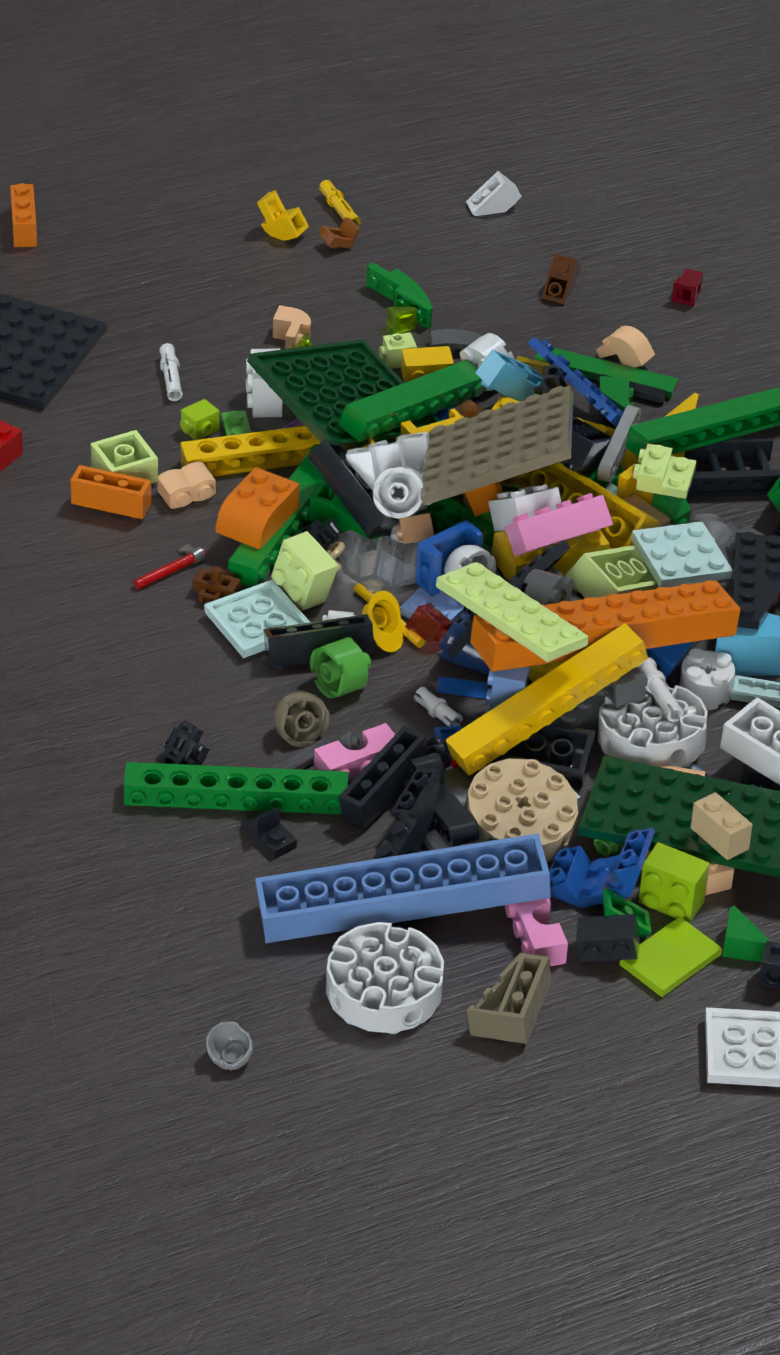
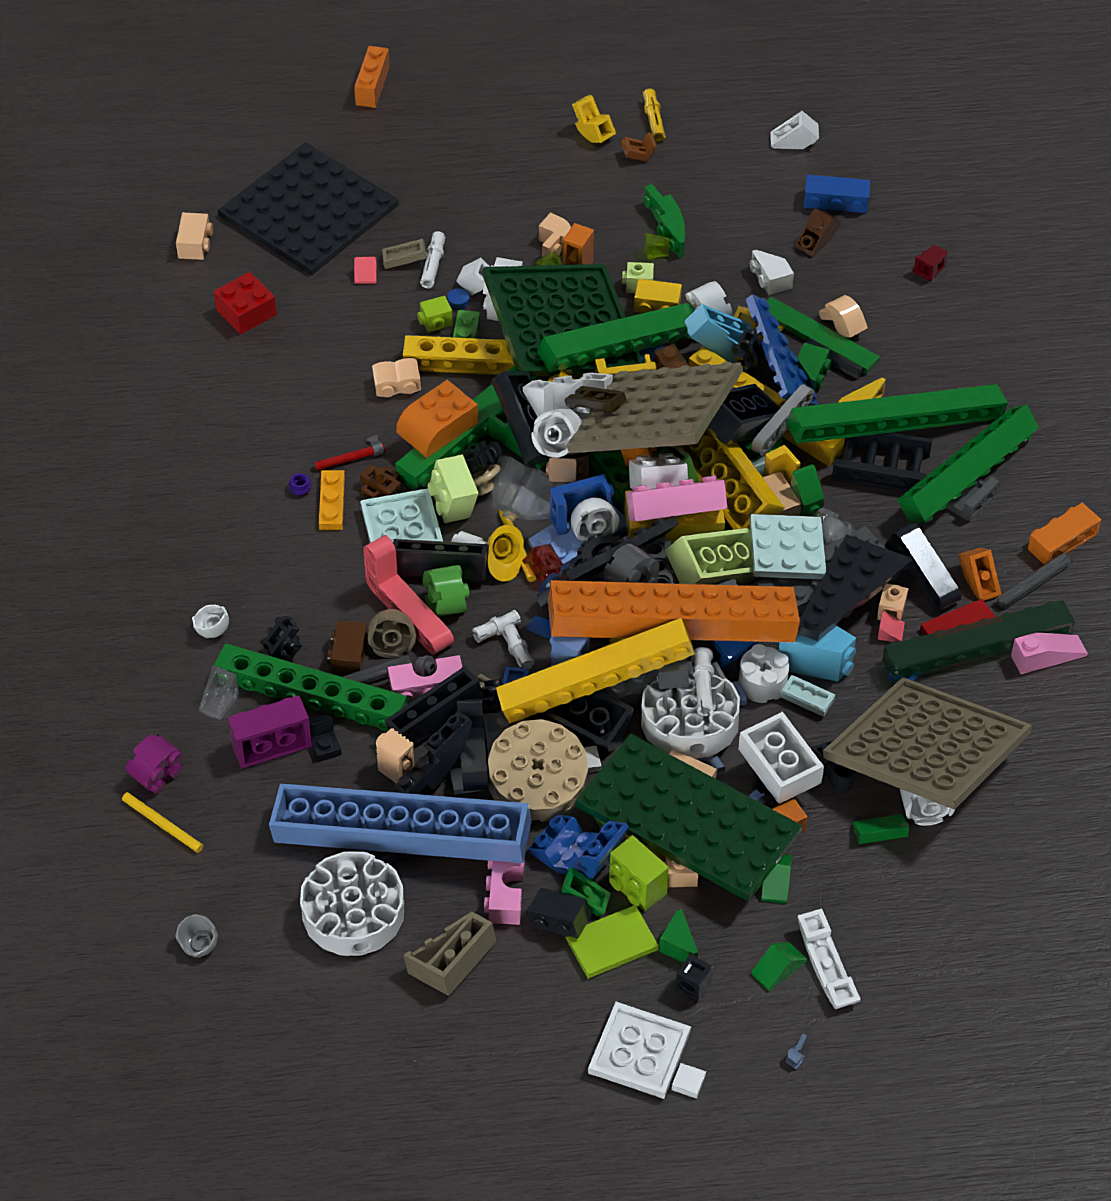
camera: 20 degrees right, 10 degrees up
(96, 747) = (211, 621): none -> white hair
(102, 393) = (365, 270): none -> coral slope
(103, 890) = (155, 763): none -> magenta brick
(110, 492) = (327, 372): orange brick -> none
(125, 455) = (350, 344): yellowish green brick -> none
(128, 603) = (300, 484): none -> dark purple plate
(133, 950) = (162, 822): none -> yellow bar
(137, 371) = (404, 253): none -> dark tan plate
(138, 811) = (219, 693): none -> clear slope
(170, 612) = (331, 500): none -> light orange plate
(216, 834) = (270, 731): none -> magenta brick
(218, 401) = (458, 299): none -> blue tile
(227, 377) = (471, 276): none -> white brick
(258, 741) = (349, 647): none -> reddish brown brick
(271, 677) = (396, 594): none -> coral beam
(326, 325) = (578, 245): none -> orange brick
(363, 828) = (394, 755): none -> light nougat brick
(405, 693) = (495, 626): none -> white pin
(430, 449) = (595, 399): none -> dark brown plate
(453, 338) = (692, 275): dark grey slope -> none
(512, 611) = (582, 586): yellowish green plate -> none
(532, 321) = (772, 272): none -> white slope
(572, 241) = (836, 193): none -> blue brick
(663, 472) = (804, 460): yellowish green plate -> none
(721, 826) = (691, 834): tan brick -> none

